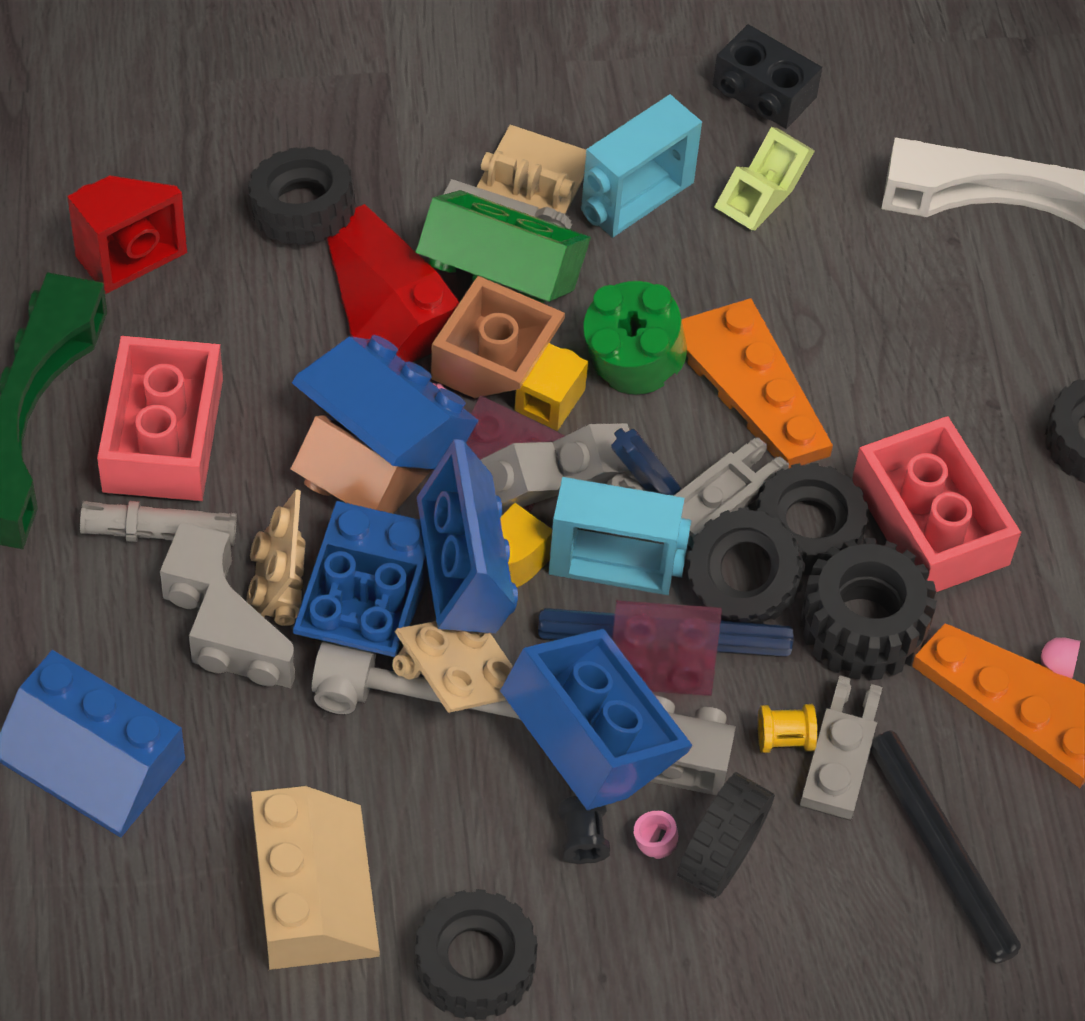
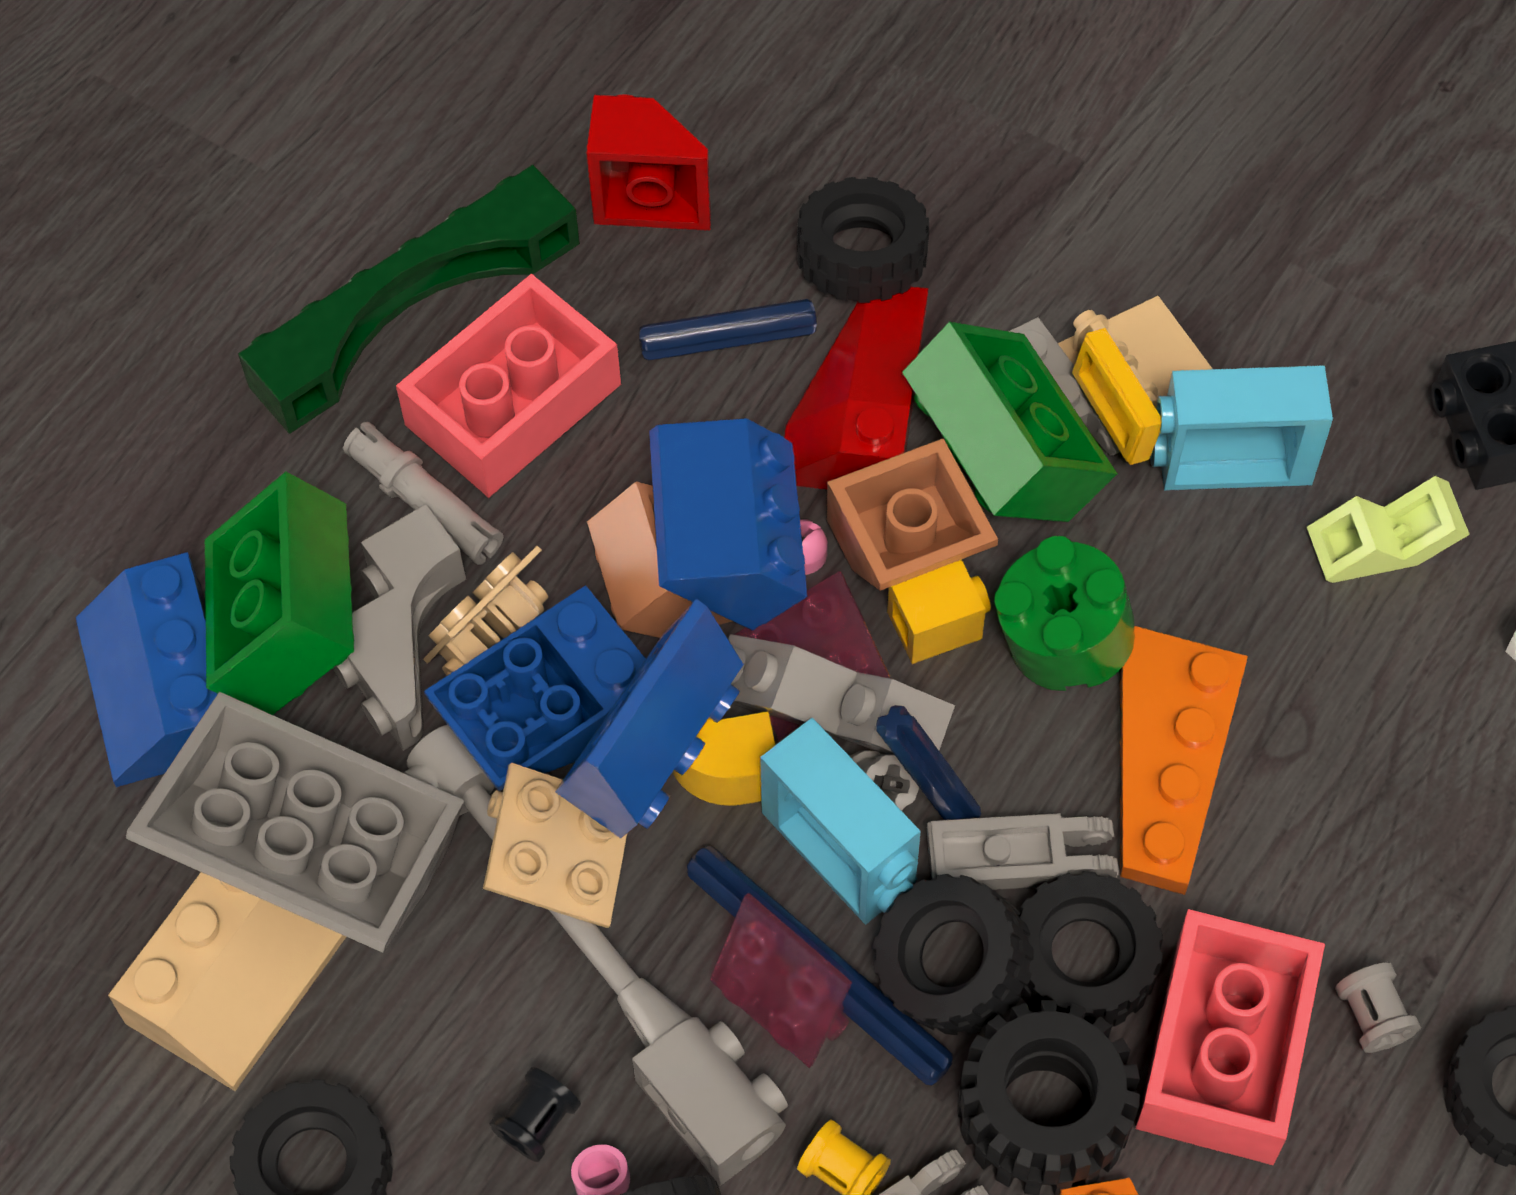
camera: 45 degrees right, 5 degrees up
(144, 633) = (278, 595): none -> green brick
(262, 303) = (727, 329): none -> dark blue axle
(296, 747) = (299, 822): none -> light grey slope
(553, 190) = (1117, 396): none -> yellow tile
(593, 716) = (624, 1003): blue slope -> none
(1009, 441) = (1377, 1007): none -> light grey bush

